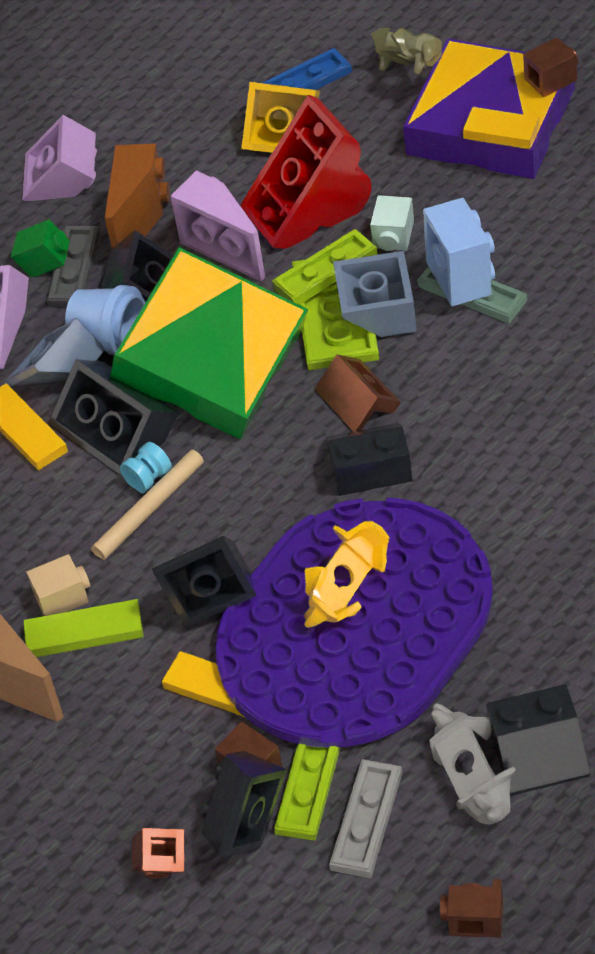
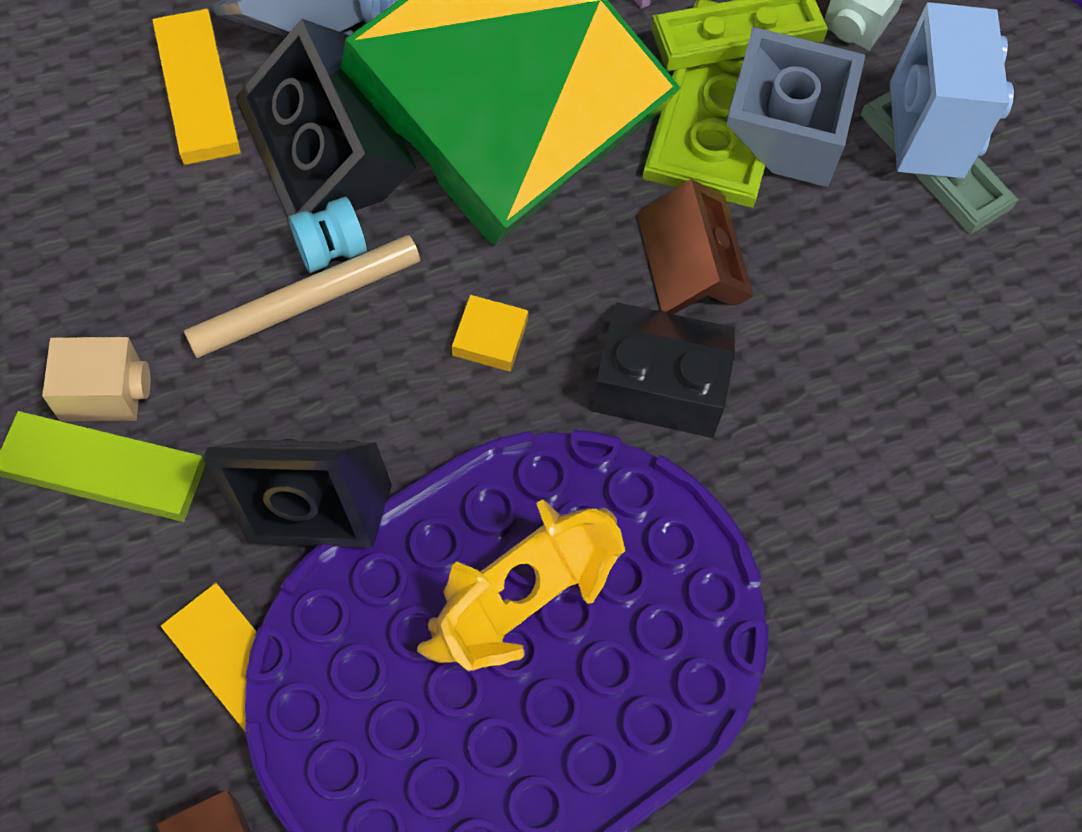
camera: 10 degrees right, 15 degrees up
(263, 480) = (490, 333): none -> yellow tile

